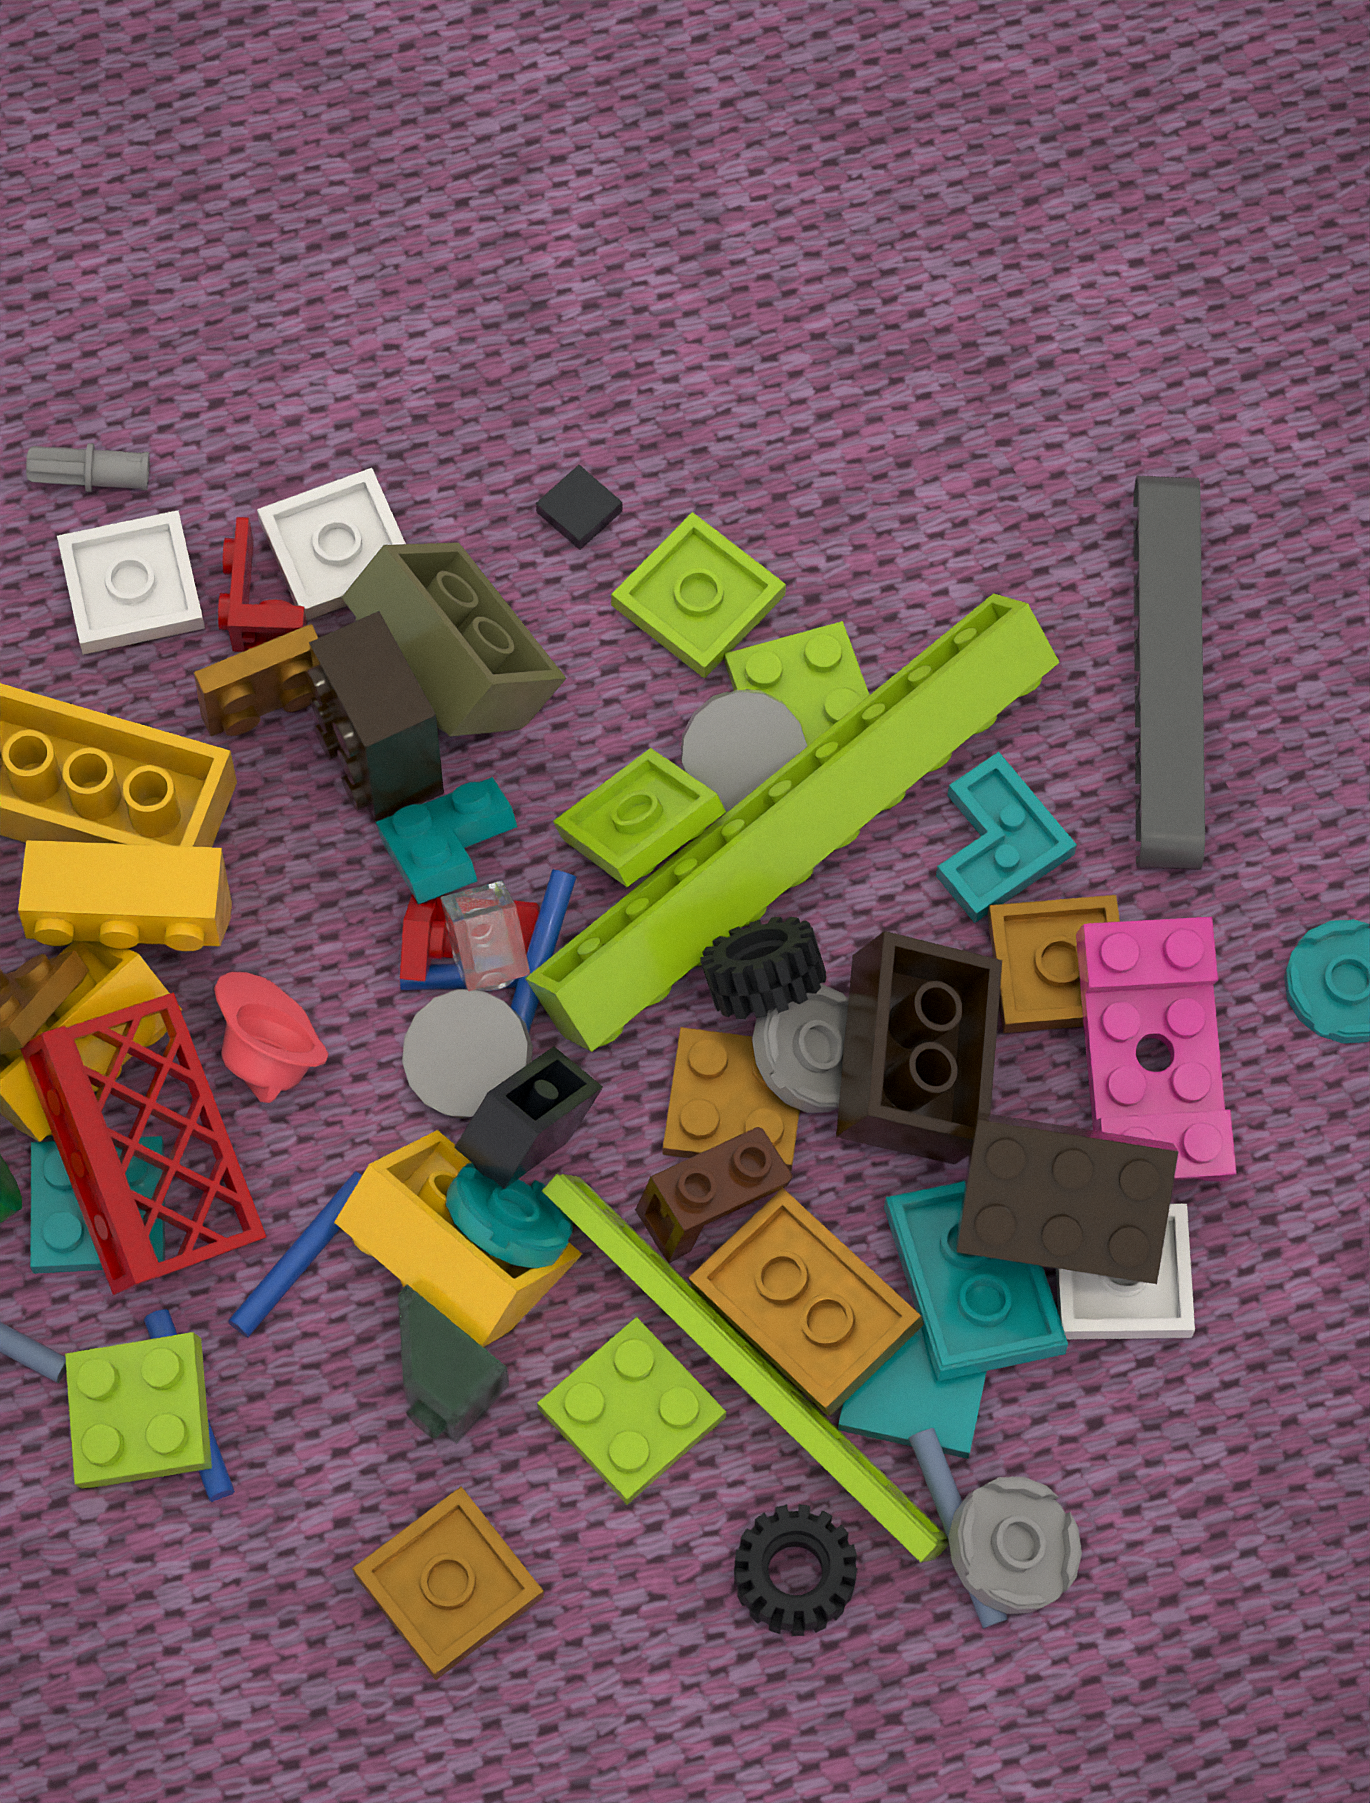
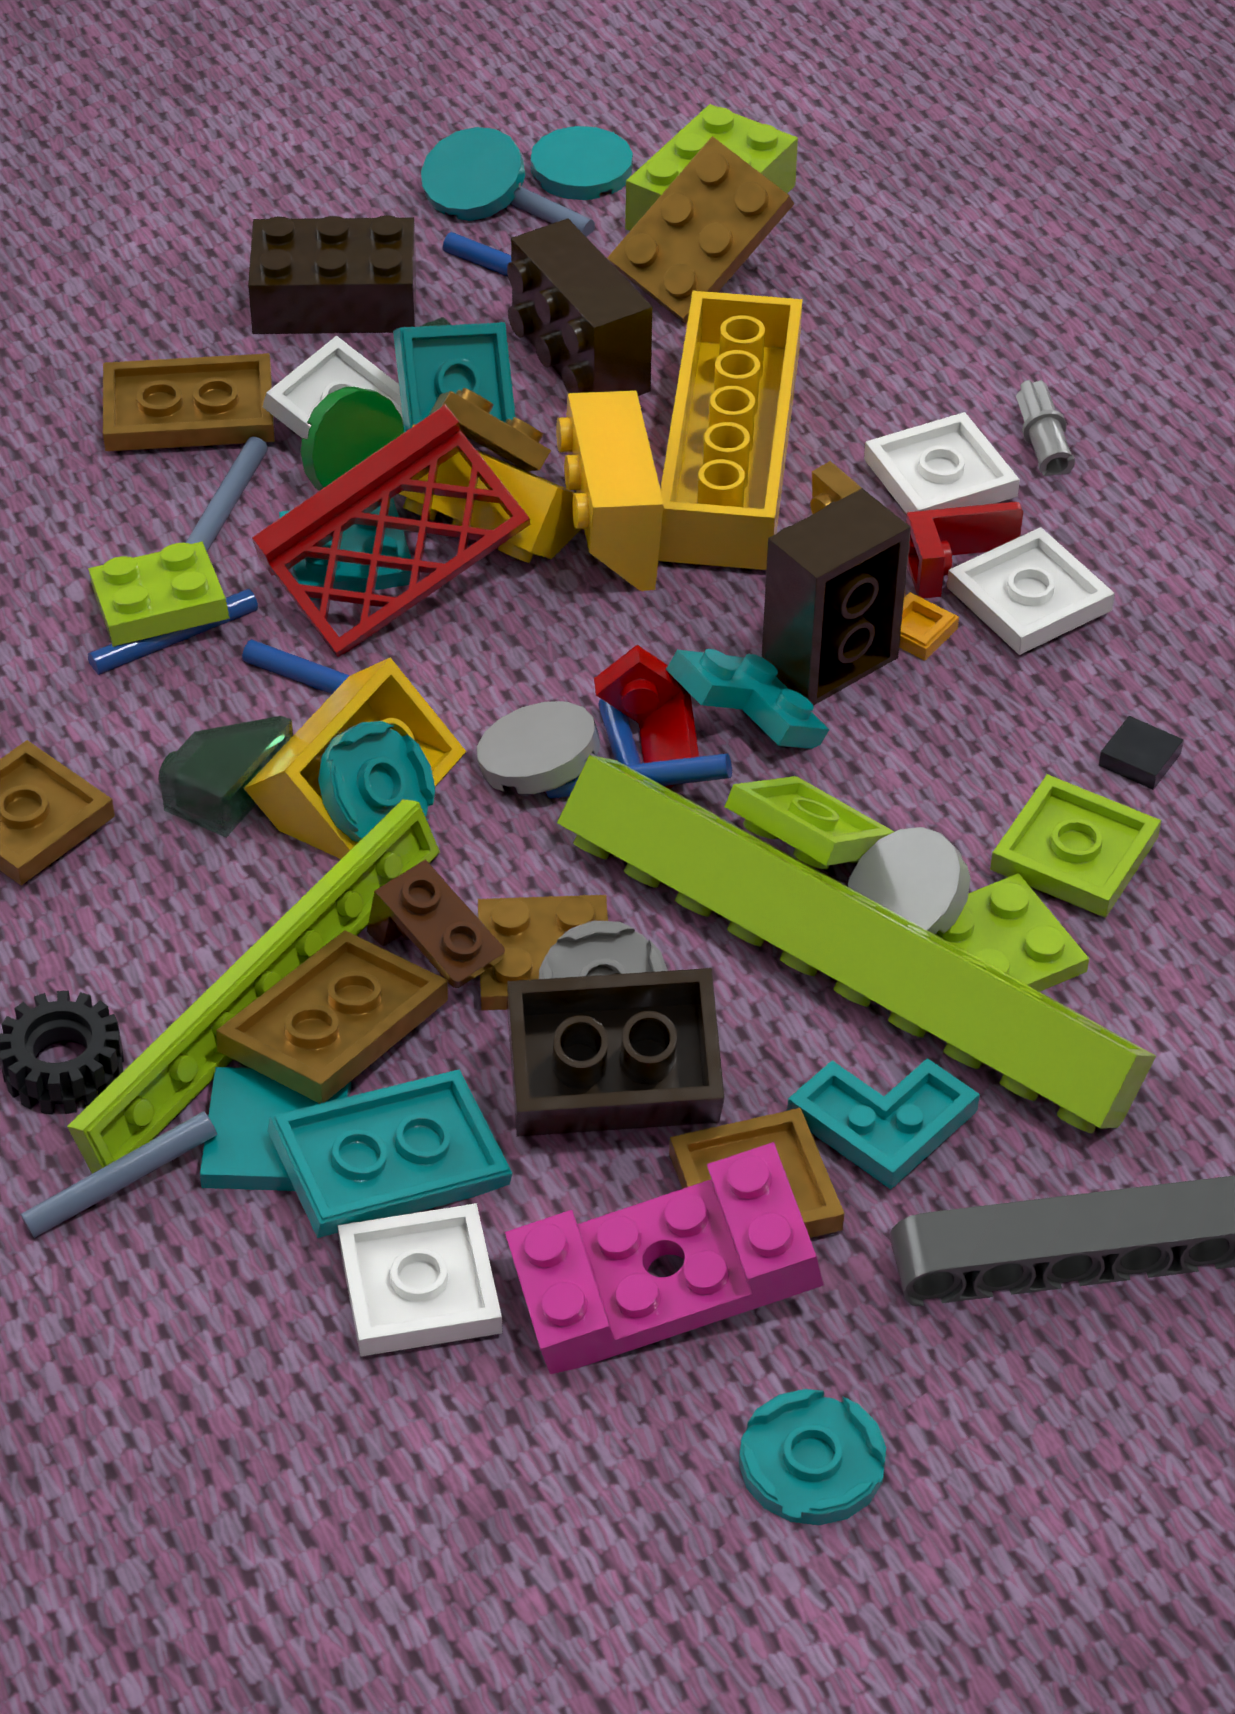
camera: 80 degrees right, 20 degrees down
(265, 1035) = (526, 600): coral piece -> none
(457, 637) = (945, 653): olive brick -> none
(485, 936) = (642, 713): clear brick -> none
(528, 1117) = (470, 772): black brick -> none
(631, 1410) = (205, 917): lime plate -> none
(763, 967) = (667, 916): black tyre -> none
(1014, 1545) = (103, 1218): light grey tile -> none
(1066, 1197) = (460, 1167): dark brown brick -> none

